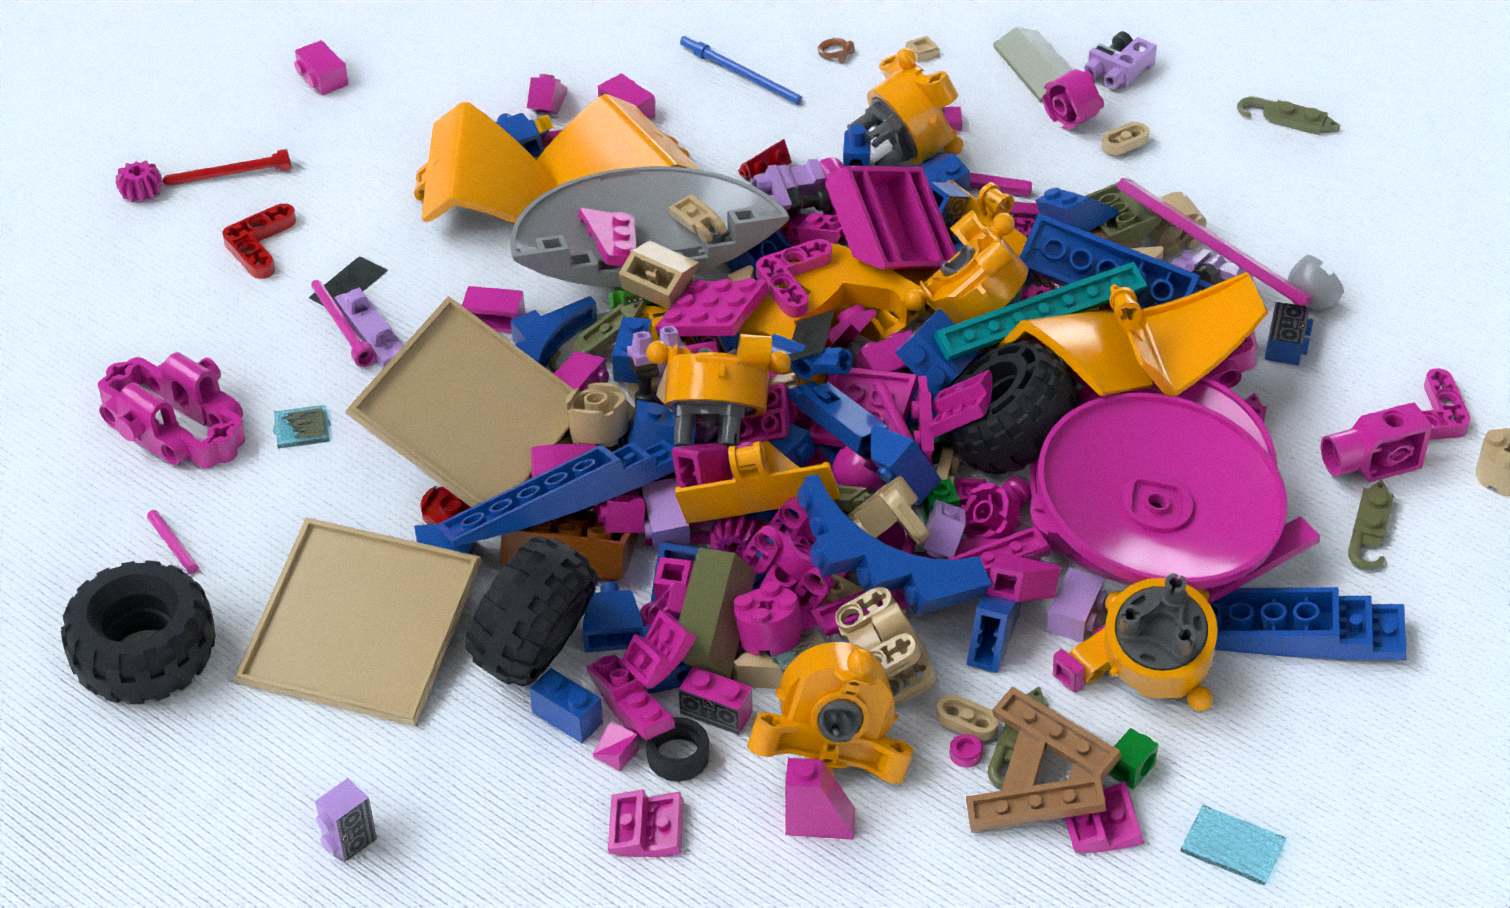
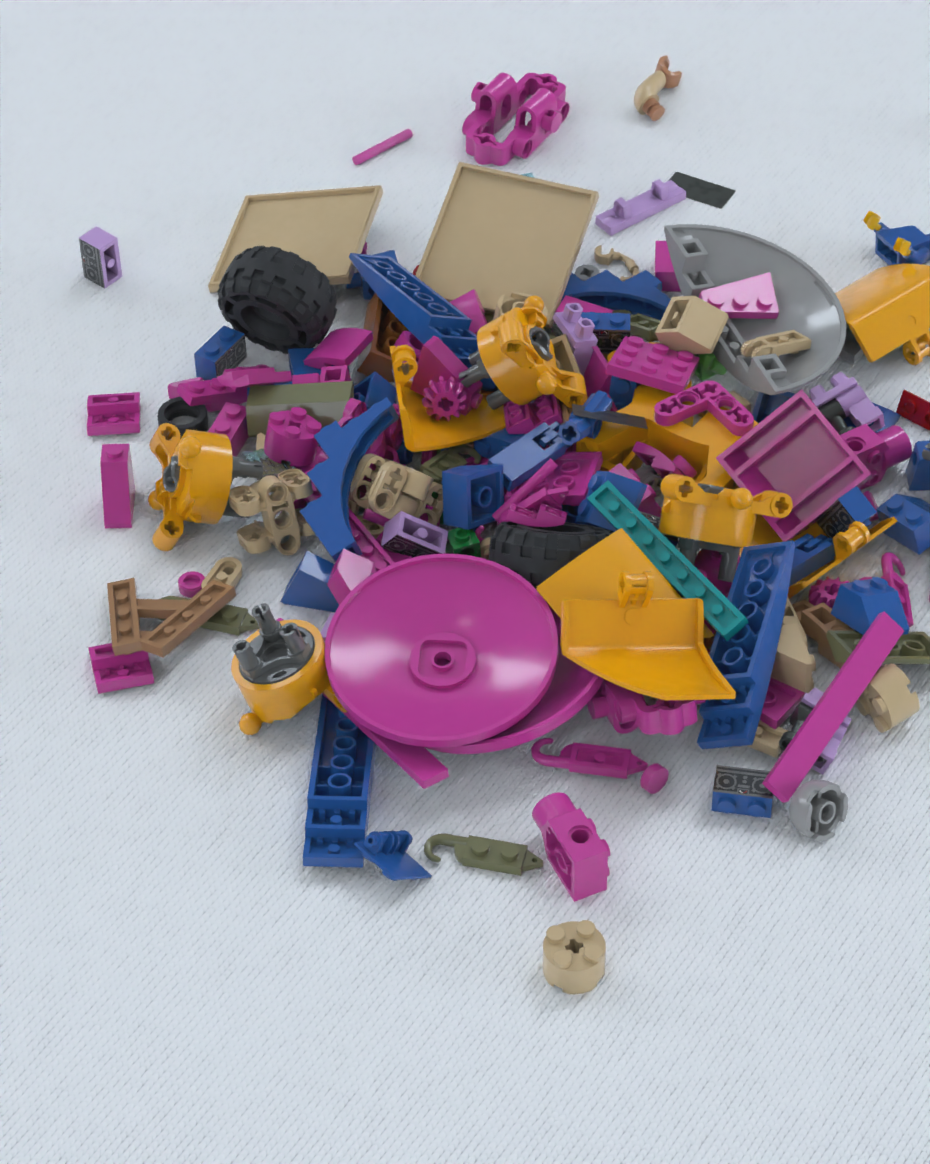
camera: 85 degrees right, 0 degrees up
(132, 601) = (270, 134): black tyre -> none
(139, 181) = (792, 54): dark pink gear -> none
(169, 295) = (646, 98): none -> piece
(243, 237) = (739, 121): red beam -> none
(278, 160) = (844, 124): red piece -> none
(361, 351) = (607, 202): dark pink piece -> none
(477, 168) = (831, 228): light orange panel -> none
(617, 571) = (339, 347): none -> dark pink slope
(1136, 759) = (178, 678): green brick -> none
(1233, 844) = (97, 750): clear light blue piece -> none
(1272, 391) = (654, 778): none -> dark pink tile
(1395, 583) = (389, 853): none -> blue hinge
(1441, 414) = (643, 915): dark pink beam -> none

